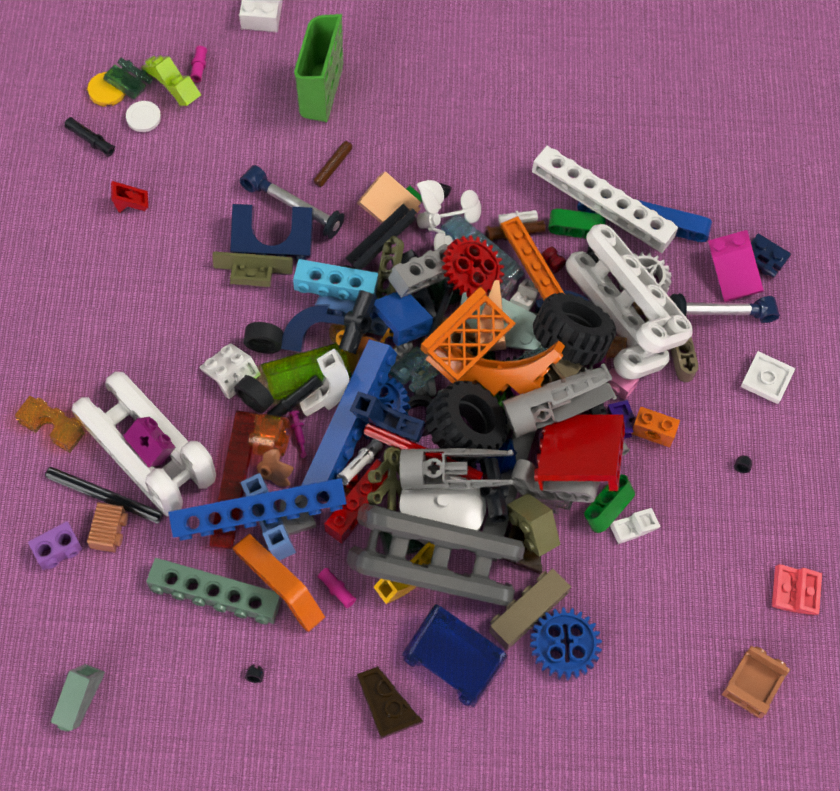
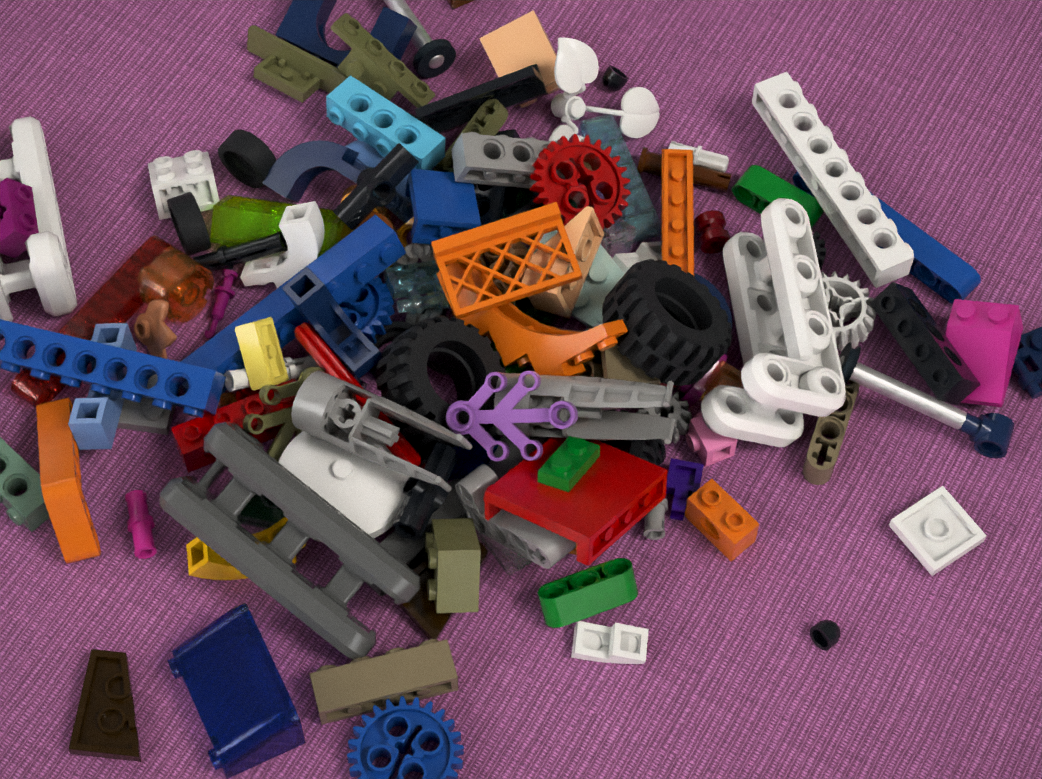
camera: 30 degrees right, 5 degrees down
(307, 245) = (377, 66): none -> olive bracket
(353, 454) = (261, 353): none -> light yellow slope
(523, 426) = (504, 416): none -> medium lavender plant
(570, 437) = (568, 463): none -> green plate
(706, 274) = (925, 344): none -> black brick

